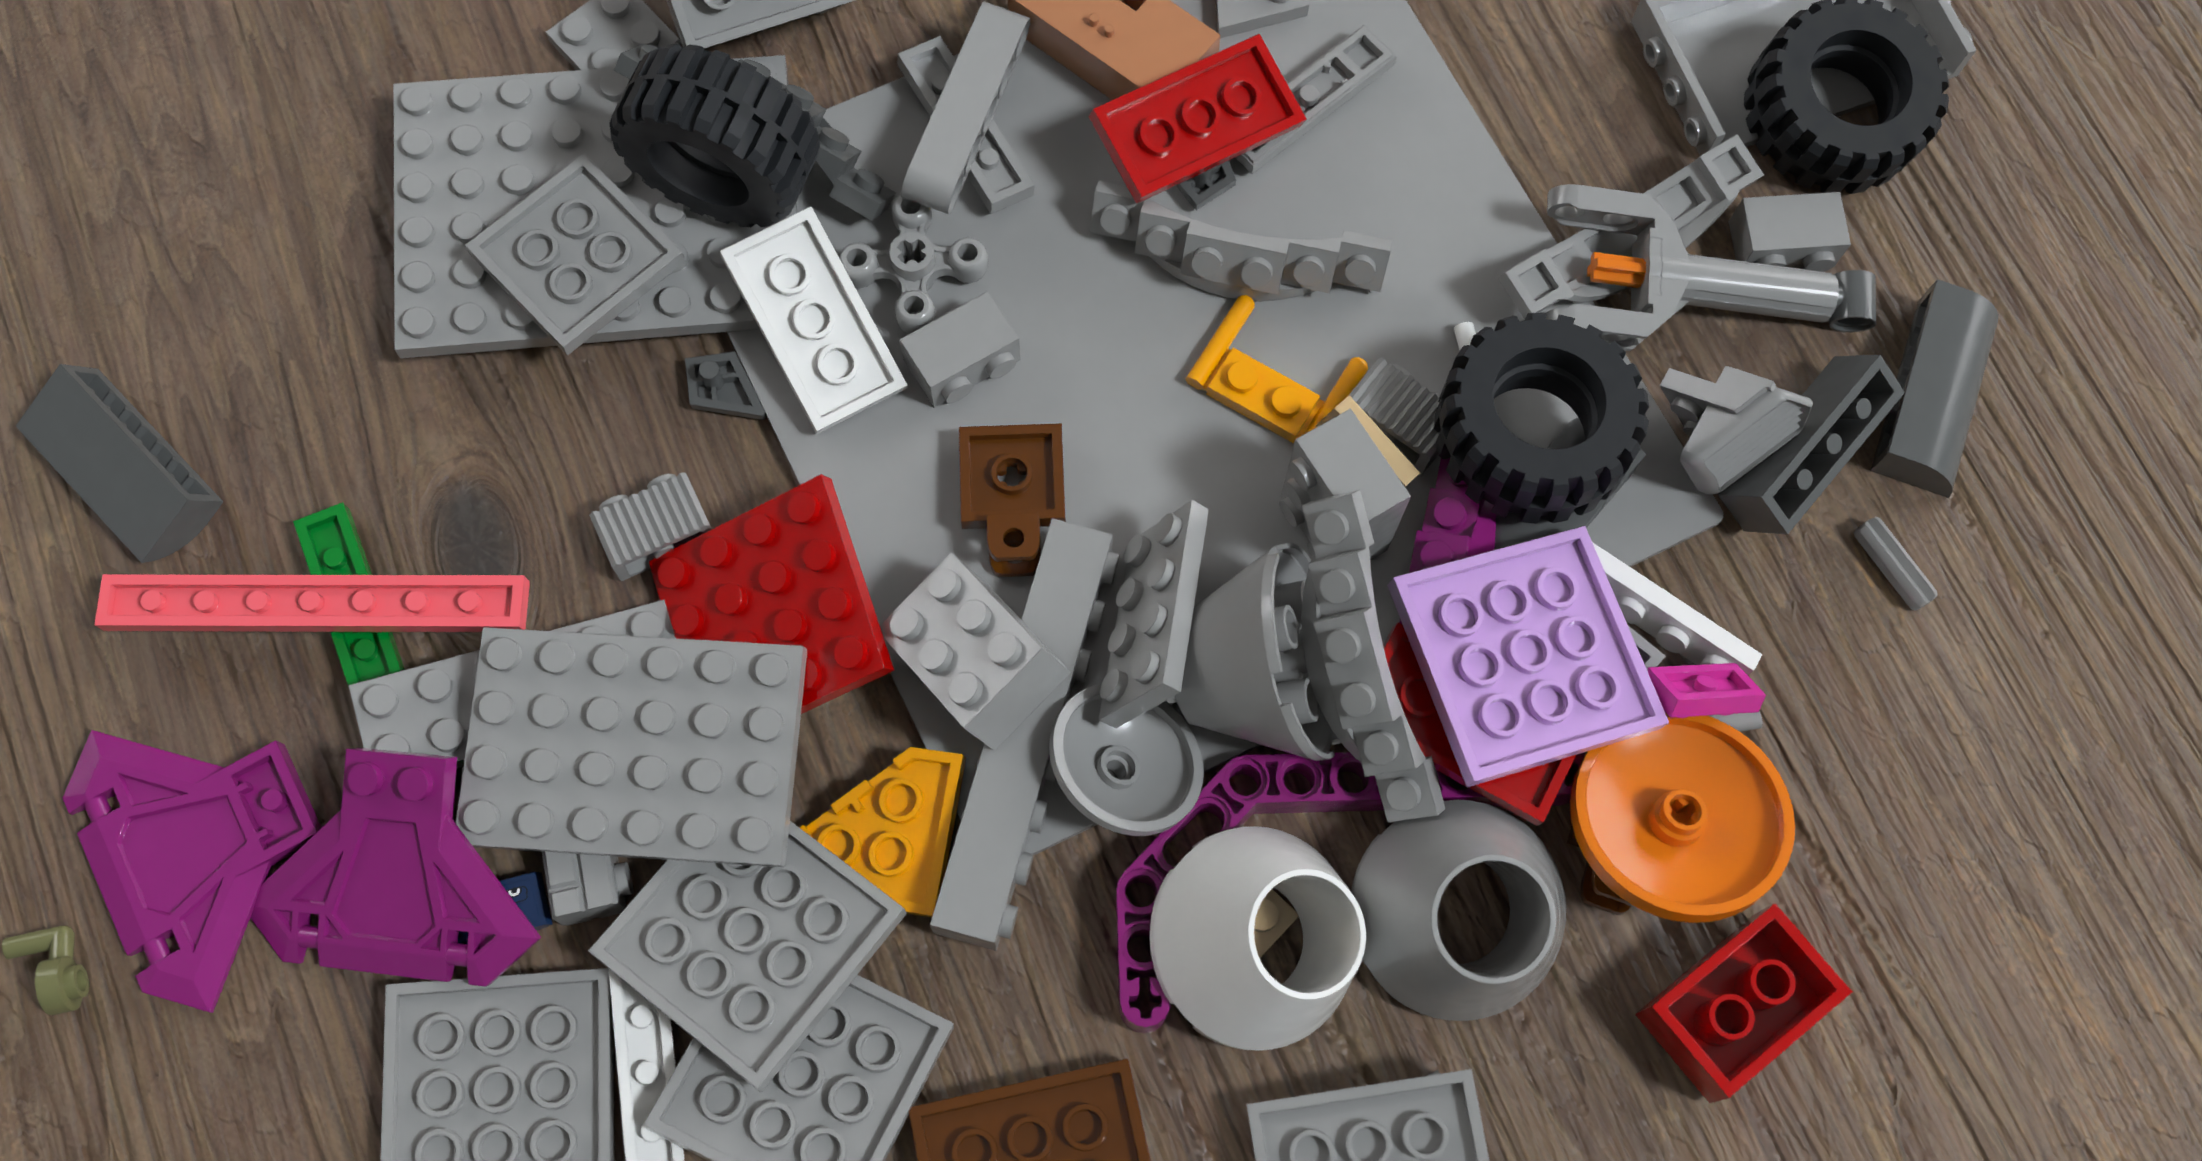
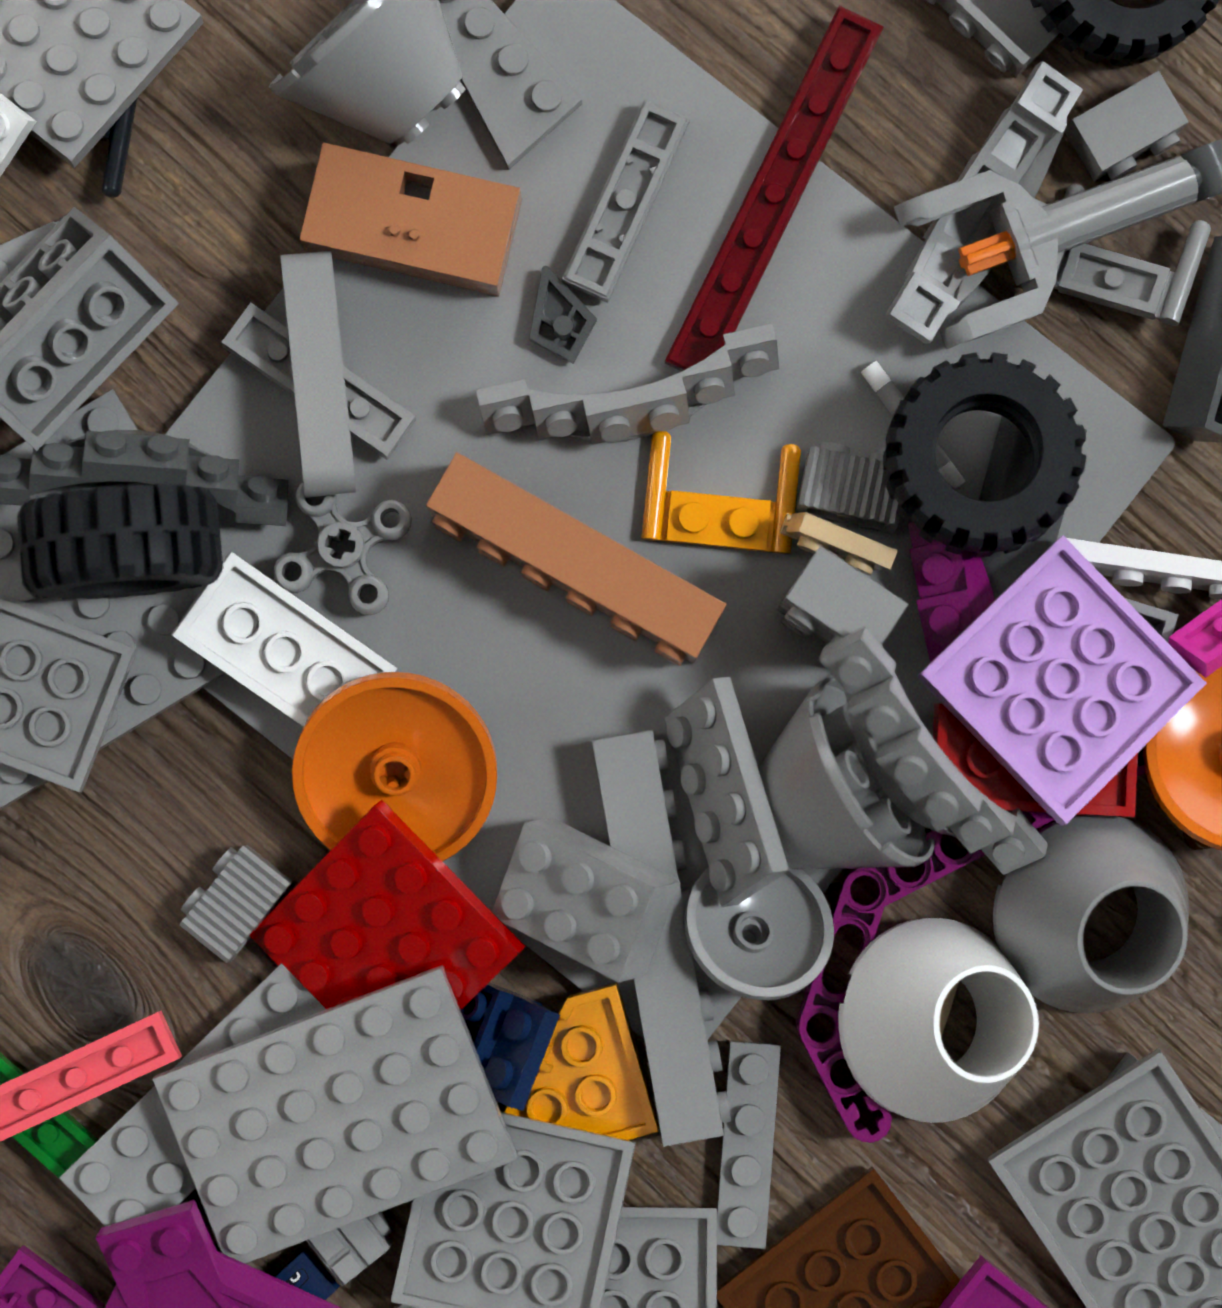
camera: 25 degrees left, 15 degrees up
(722, 386) = (224, 739): dark grey piece -> none
(833, 758) = (509, 1040): none -> dark blue brick
(879, 444) = (400, 744): none -> orange dish
(961, 350) = (430, 612): light grey brick -> none
(1014, 980) = (748, 1144): none -> light grey plate
(1018, 511) = (553, 741): reddish brown plate -> none
(1117, 358) = (573, 558): none -> nougat brick
(1197, 118) = (541, 289): red plate -> none
(1456, 141) = (776, 188): none -> dark red tile
(1714, 344) = (1131, 282): none -> light grey plate
(1731, 423) = (1154, 368): light grey piece -> none

